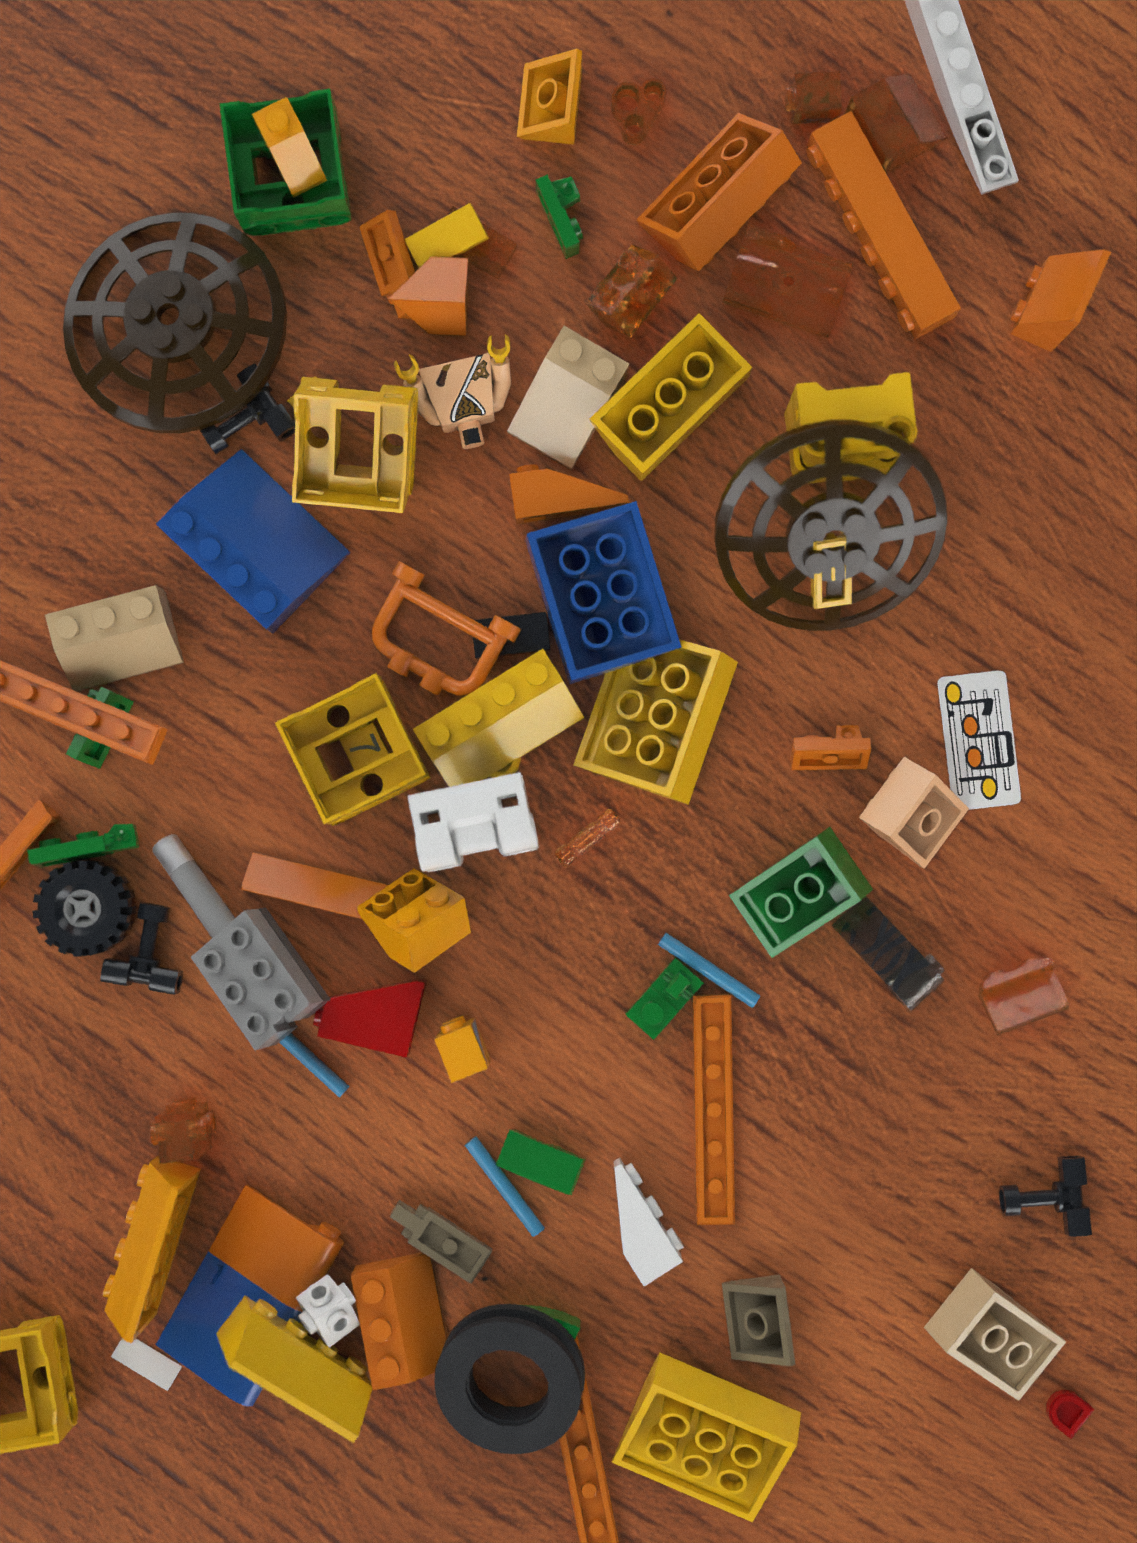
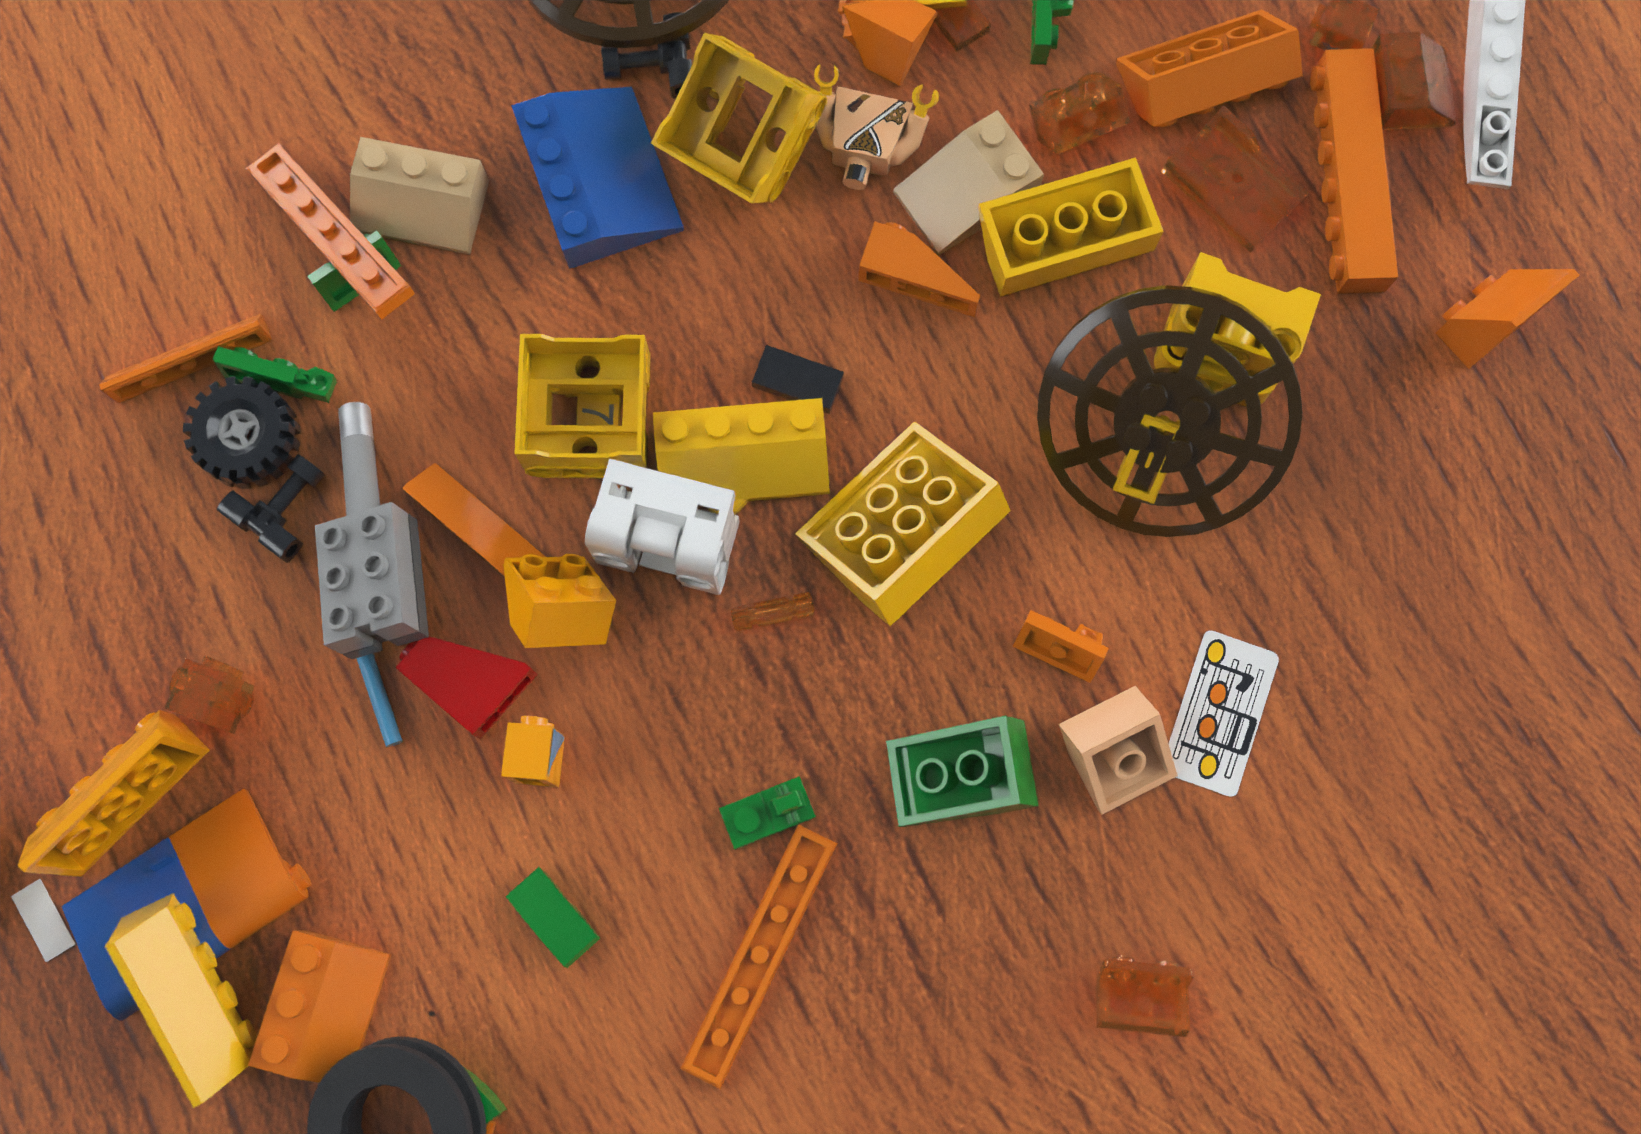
camera: 25 degrees right, 10 degrees down
(328, 1310) = (246, 945): white brick -> none
(403, 661) = (680, 353): orange bar -> none
(442, 1240) = (408, 947): dark tan hinge -> none
(504, 1186) = (502, 925): dark azure bar -> none
(602, 592) = (908, 376): blue slope -> none
(644, 1239) = (617, 1050): white slope -> none
(709, 970) = (827, 807): dark azure bar -> none
(889, 954) = (1024, 884): clear smoke door -> none

